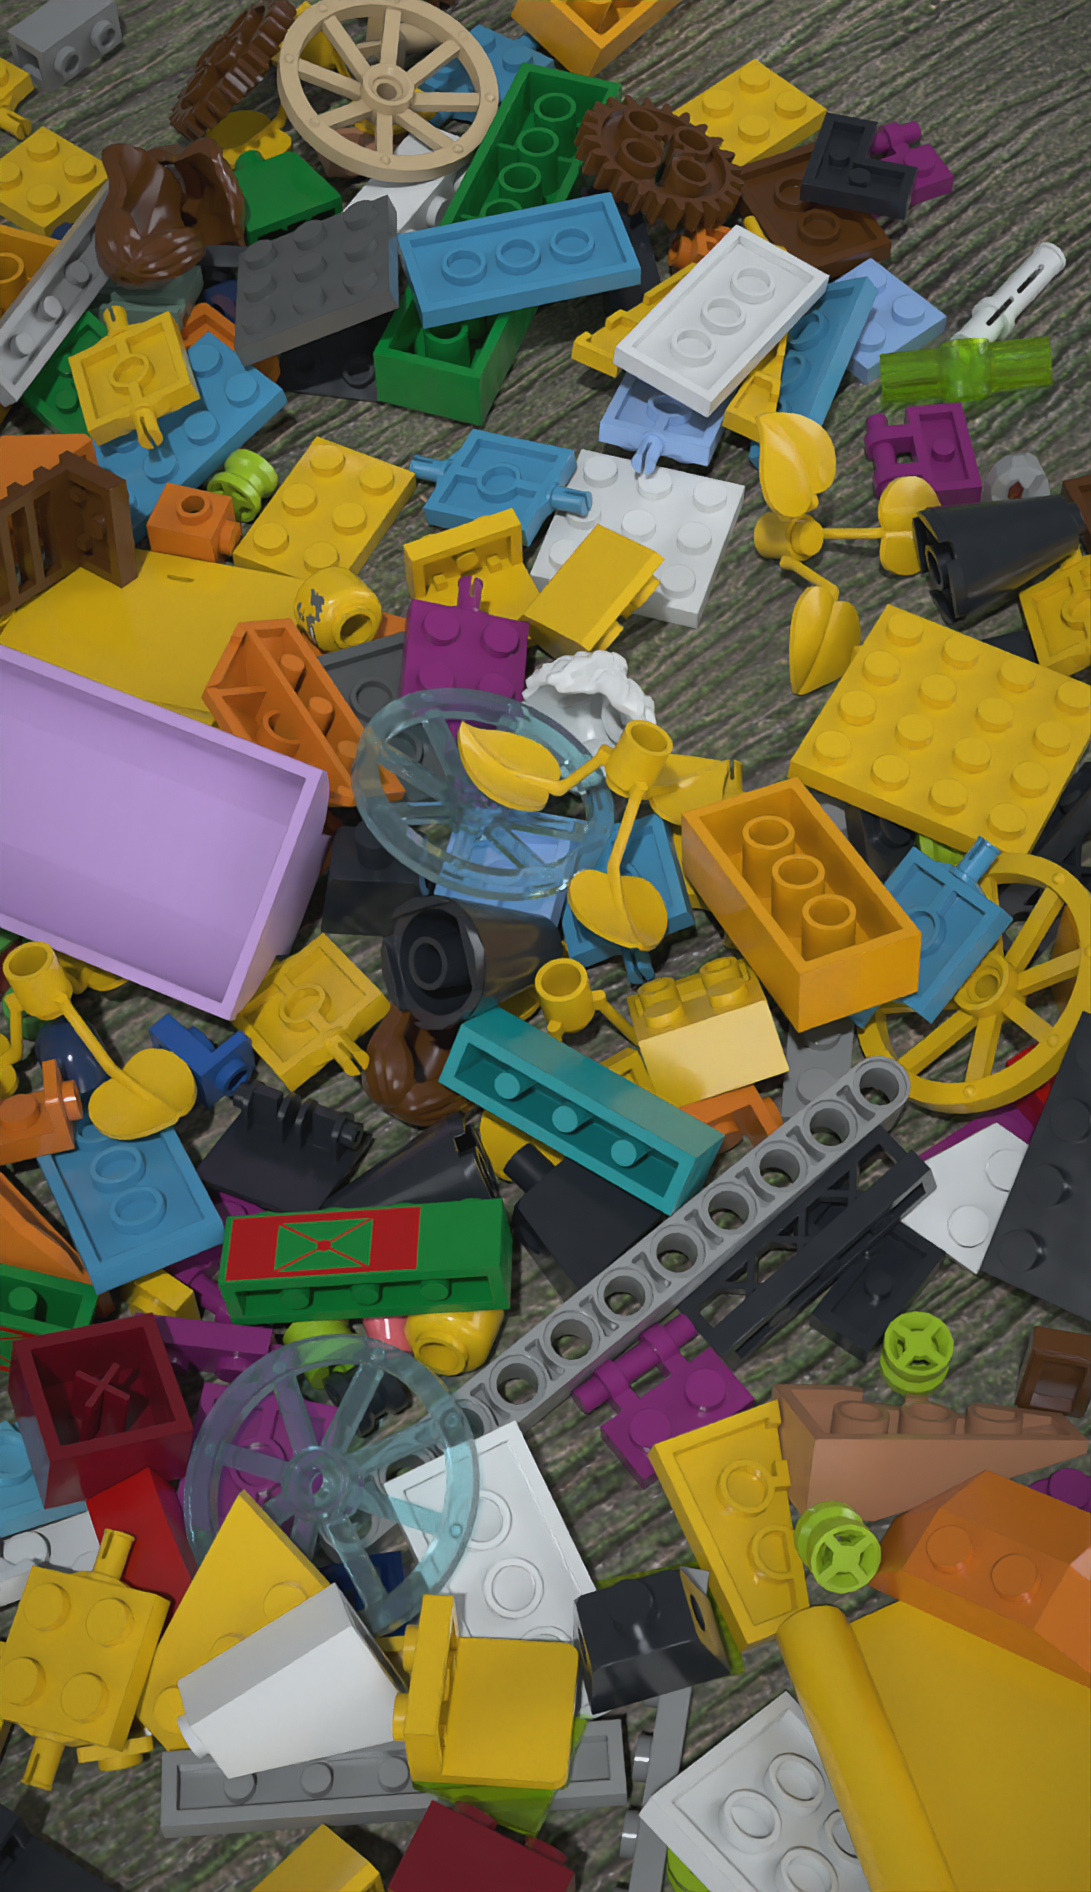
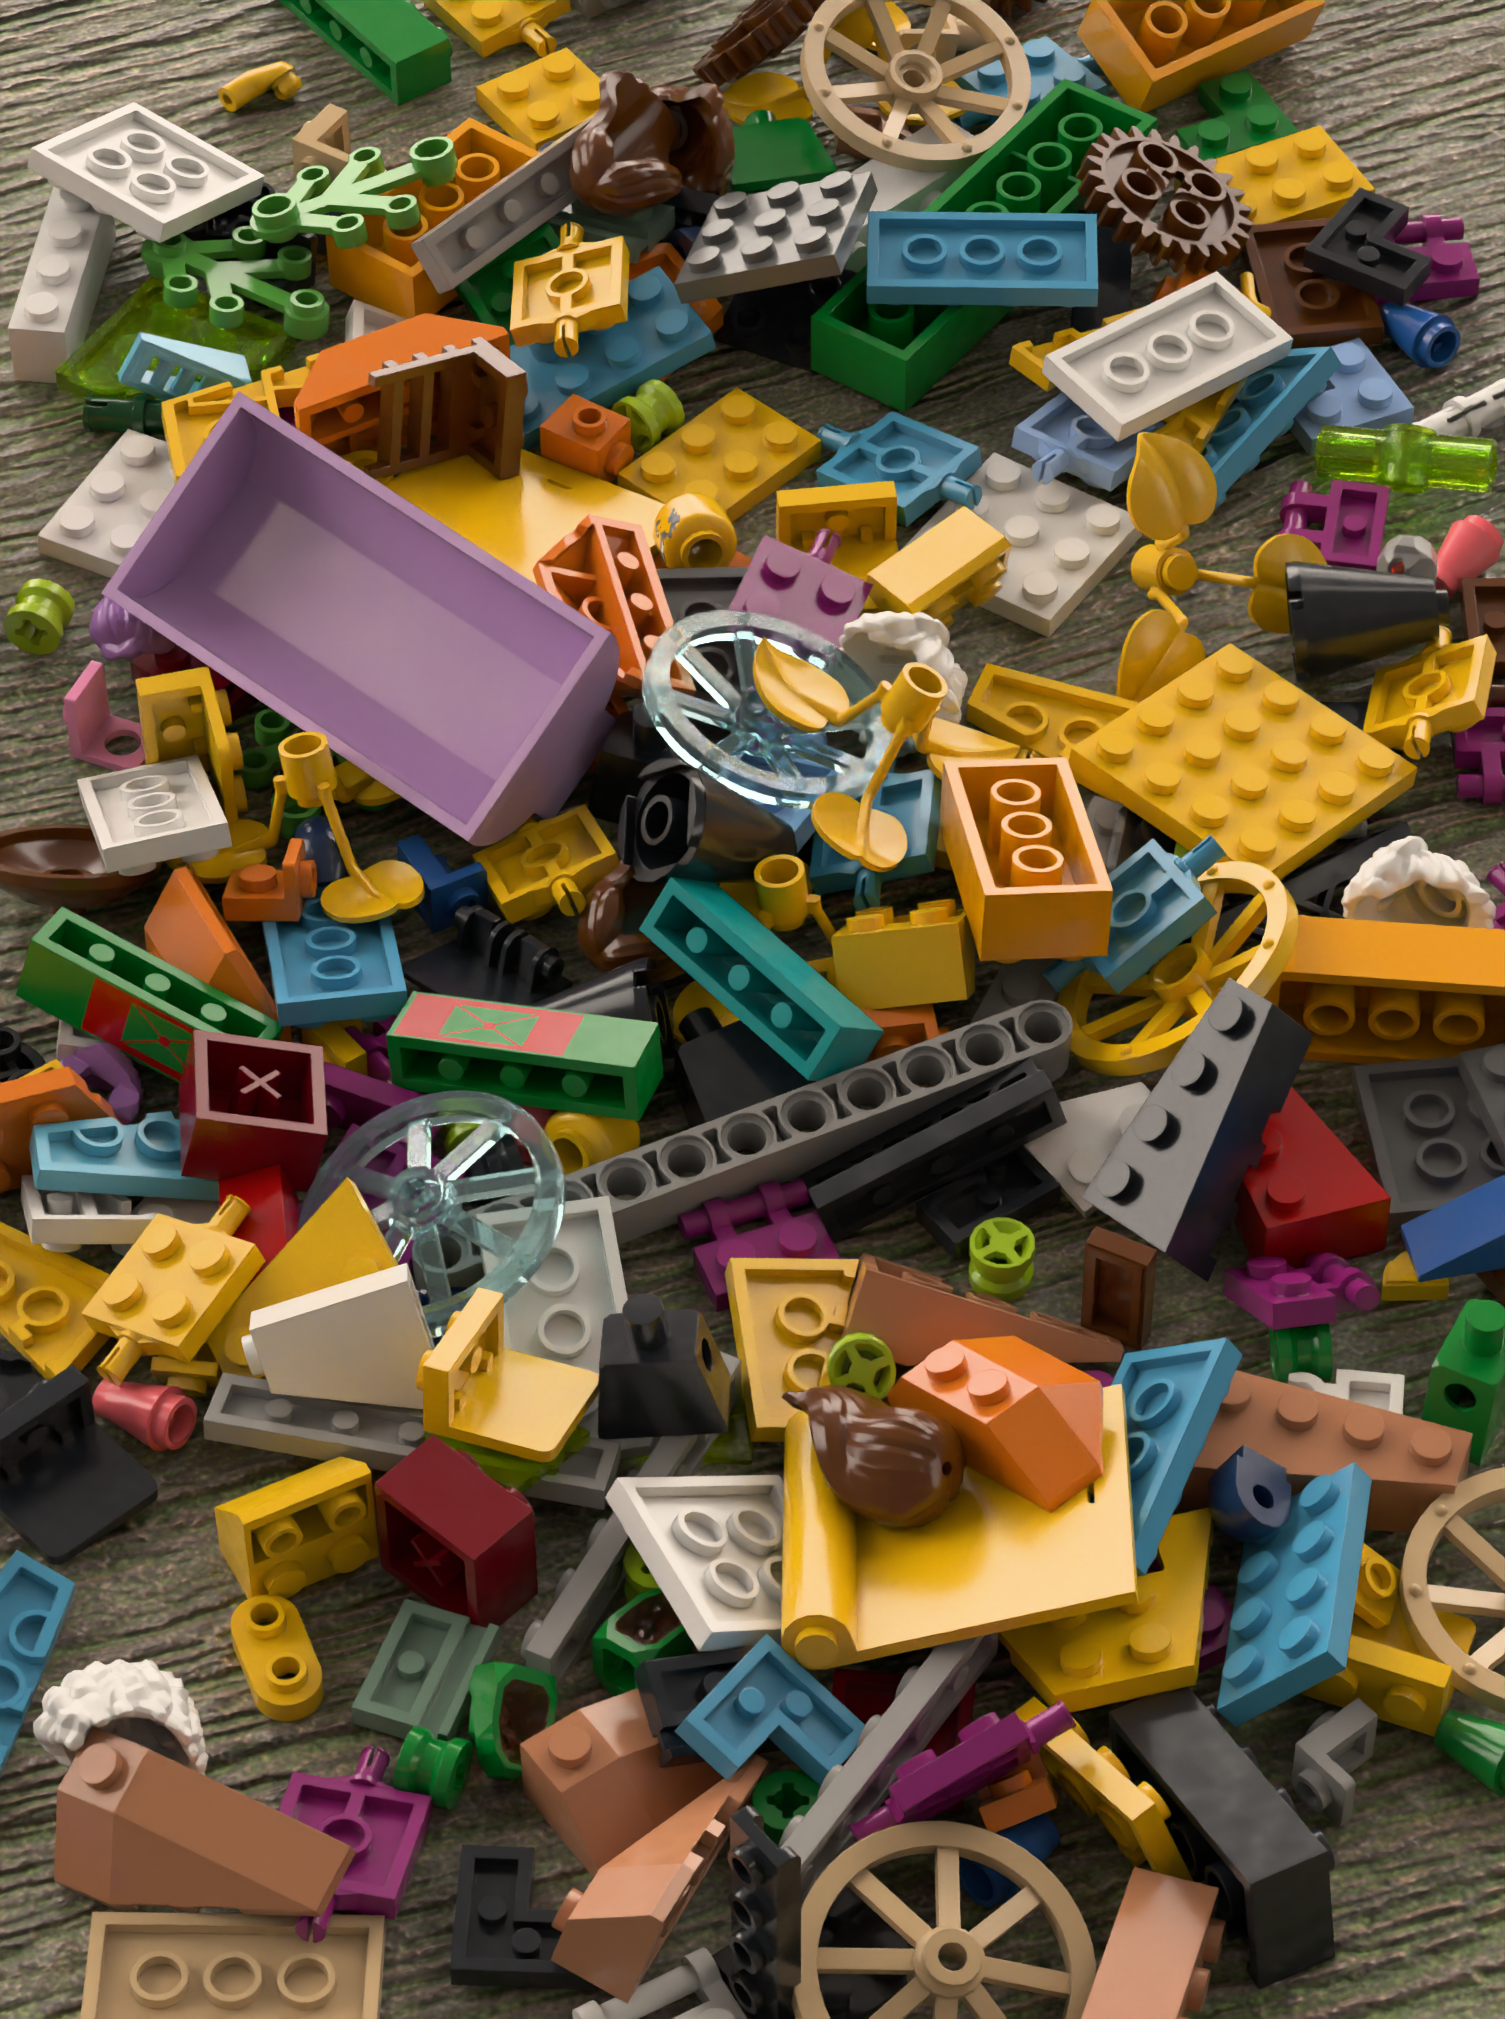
camera: 15 degrees right, 10 degrees down
(89, 1806) = (149, 1412): none -> coral cone
(680, 66) = (1240, 117): none -> green plate
(740, 718) = (1041, 713): none -> yellow wing
(913, 1676) = (883, 1459): none -> reddish brown piece
(925, 241) = (1422, 334): none -> blue cone
(1058, 447) = (1467, 552): none -> coral cone

